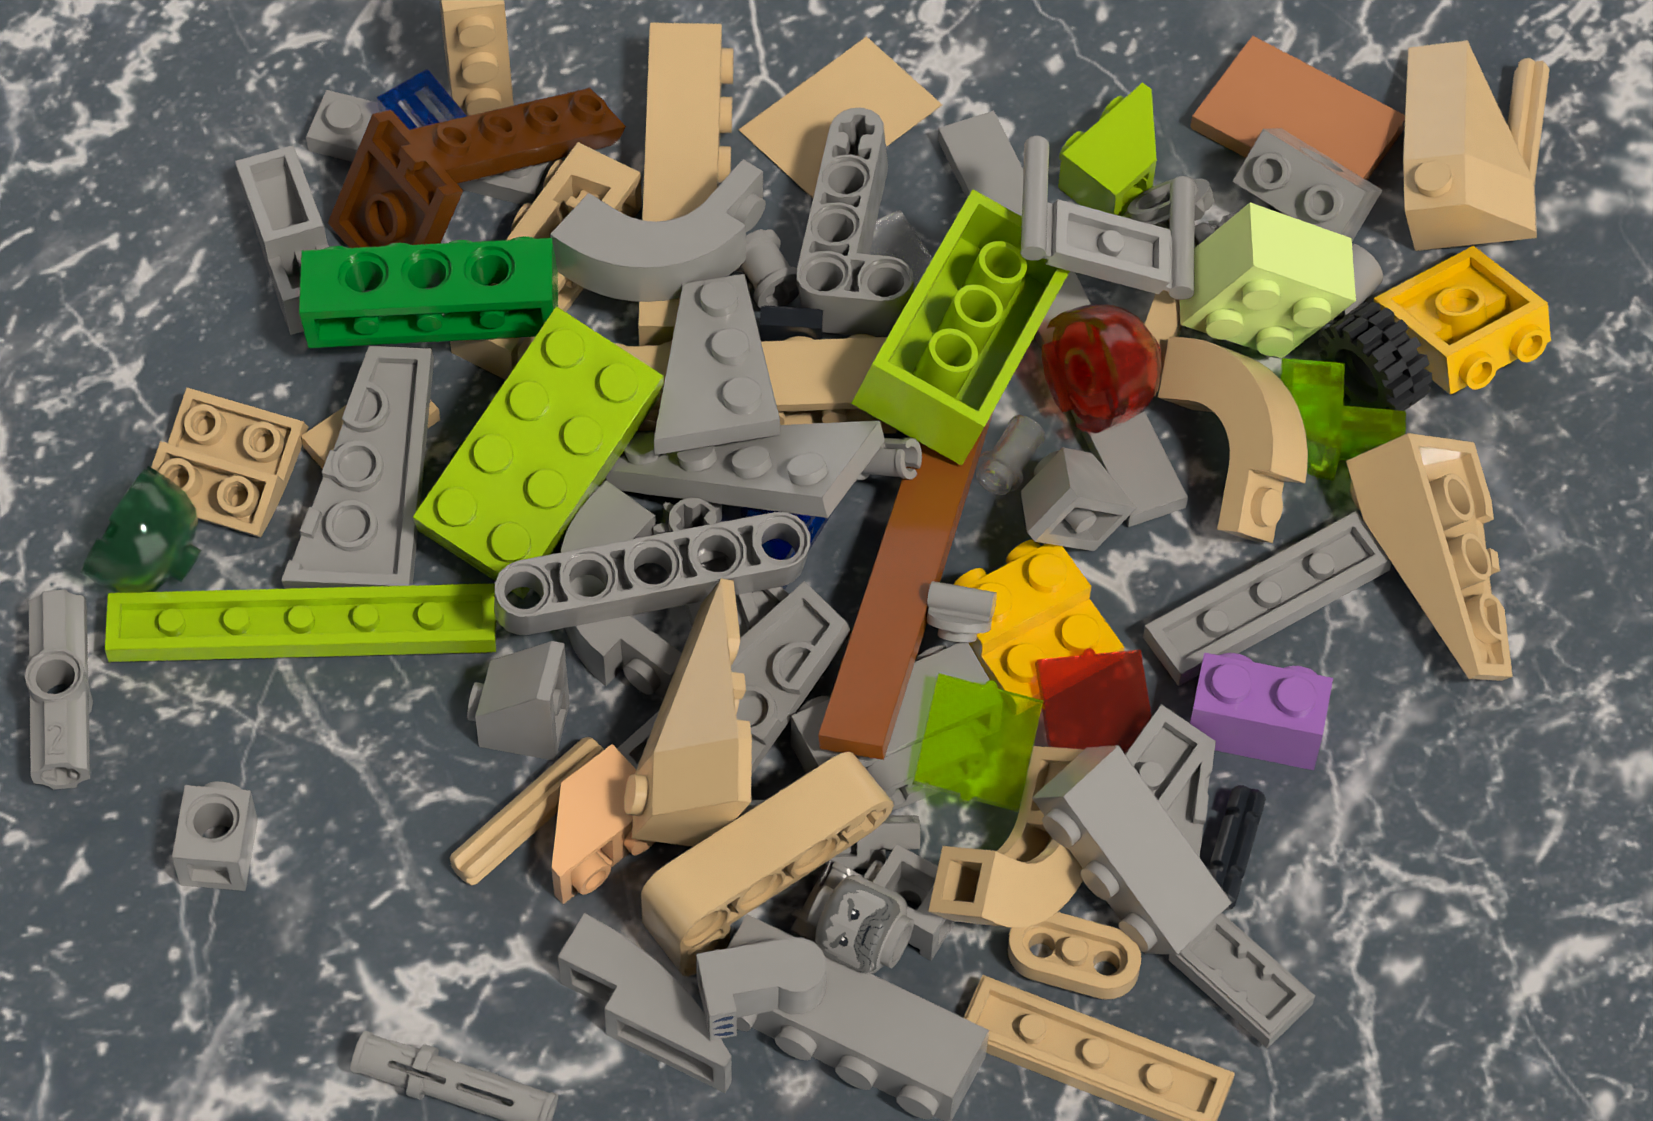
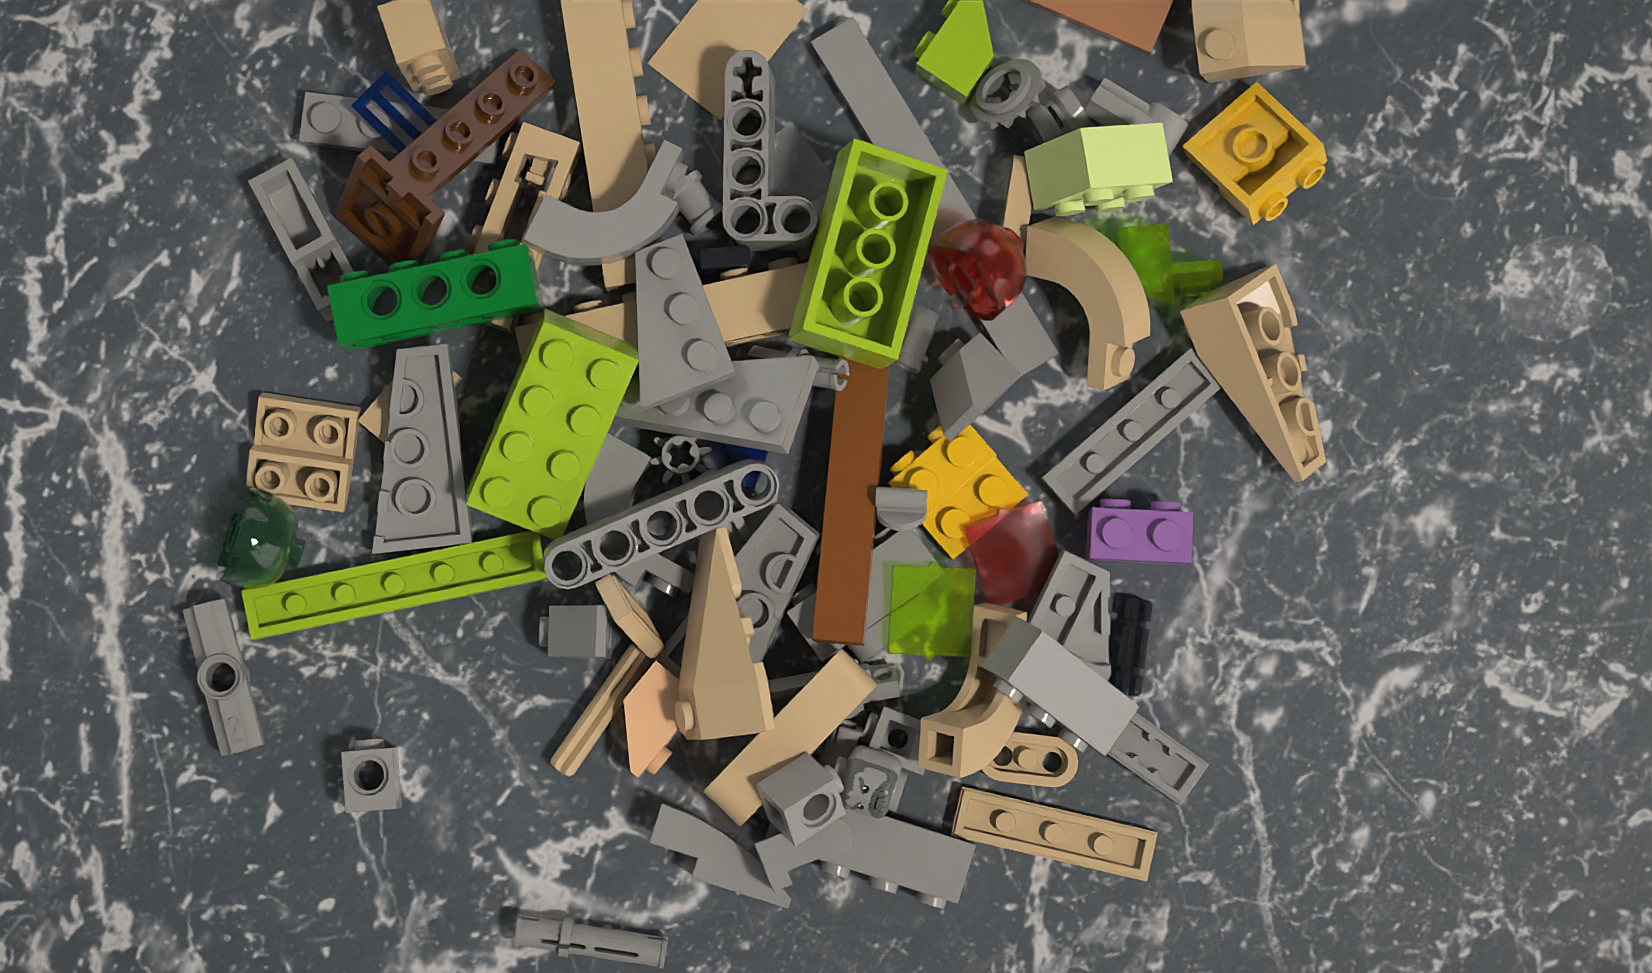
camera: 15 degrees left, 25 degrees up
(591, 680) = (630, 616): none -> tan tile
(744, 899) = (802, 798): none -> light grey brick
(1107, 243) = (967, 167): light grey plate -> none
(1306, 183) = (1118, 56): light grey brick -> none
(1378, 358) = (1193, 216): black tyre -> none

